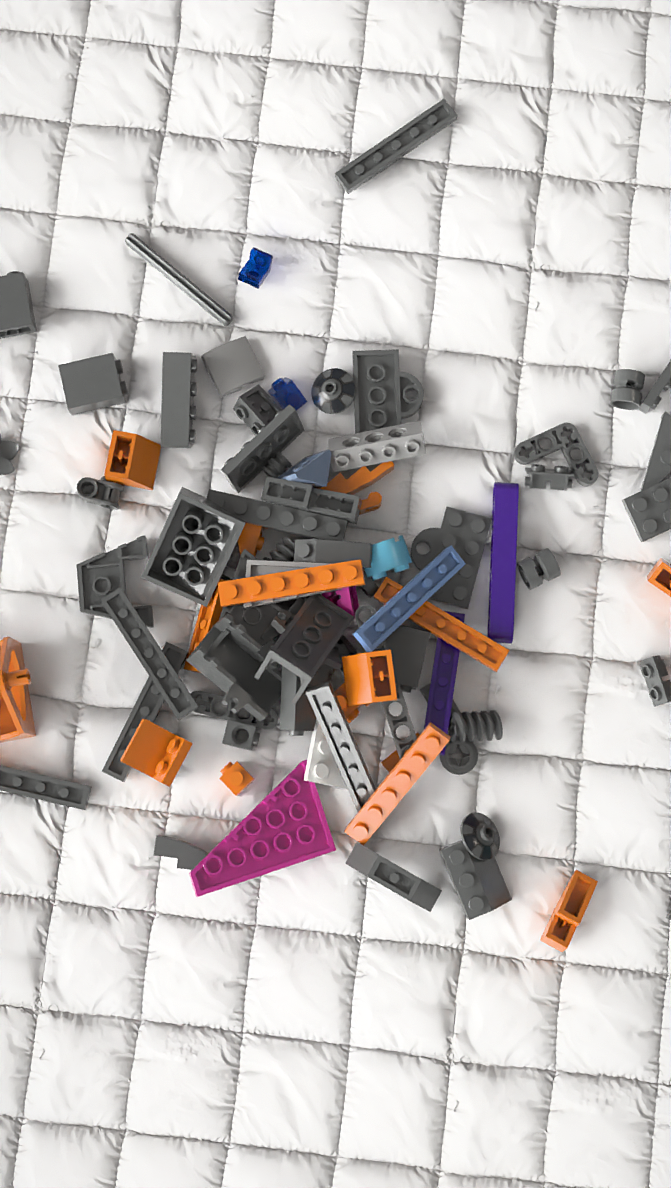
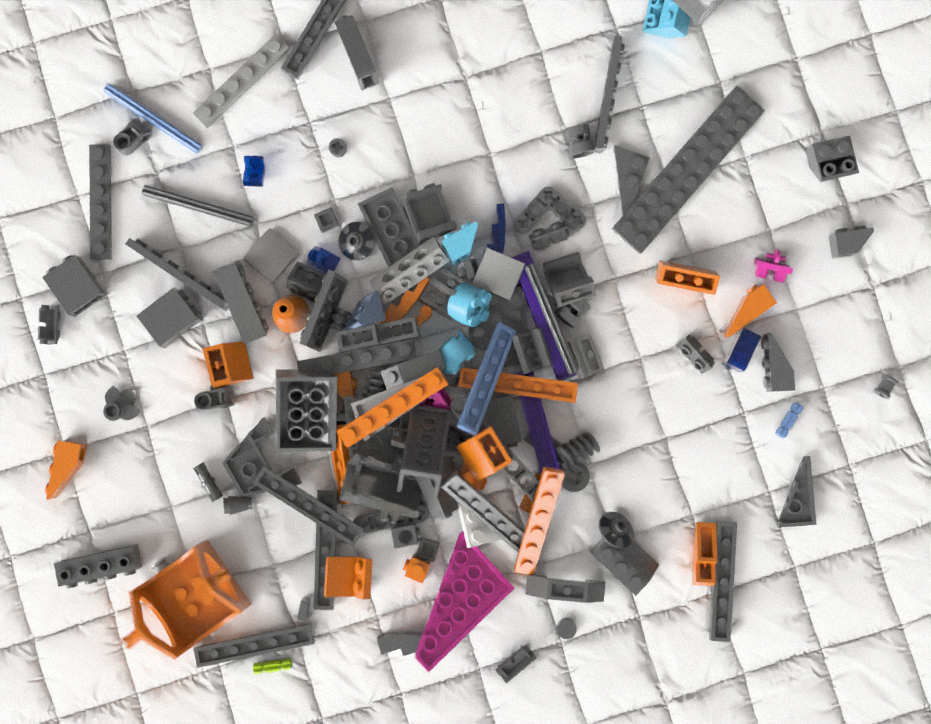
camera: 30 degrees left, 5 degrees up
(27, 814) = (272, 666): none -> lime axle
(51, 579) = (207, 482): none -> dark grey pin
(70, 617) = (236, 504): none -> dark grey cone
(76, 231) = (100, 202): none -> dark grey plate
(91, 766) = (304, 609): none -> dark grey tile
(120, 332) = (172, 268): none -> dark grey plate
(143, 177) = (133, 137): none -> dark grey piece
(173, 167) = (152, 118): none -> medium blue axle
(224, 436) = (290, 313): none -> orange cone
(258, 763) = (427, 549): none -> dark grey tile
(286, 169) = (241, 81): none -> light grey plate
(293, 938) = (516, 663): none -> dark grey hinge
(310, 354) = (326, 220): none -> dark grey tile
(354, 276) = (333, 143): none -> dark grey bush
(374, 924) = (566, 628): none -> dark grey tile
(405, 489) = (439, 290): none -> light grey slope
(424, 191) = (356, 52): none -> dark grey slope
(425, 393) = (428, 213): none -> dark grey panel
(426, 512) = (469, 305): none -> medium azure brick
(443, 476) = (470, 269): none -> dark grey tile
(446, 441) = (459, 245): none -> medium azure slope
(473, 592) = (532, 350): none -> dark grey bracket
(474, 492) = (498, 274): none -> light grey slope
(483, 465) = (498, 230): none -> clear blue slope
(510, 567) = (551, 318): none -> dark grey axle
(530, 626) = (586, 356): none -> light grey plate
(549, 533) = (568, 279): none -> dark grey panel
(577, 954) = (723, 589): none -> dark grey plate

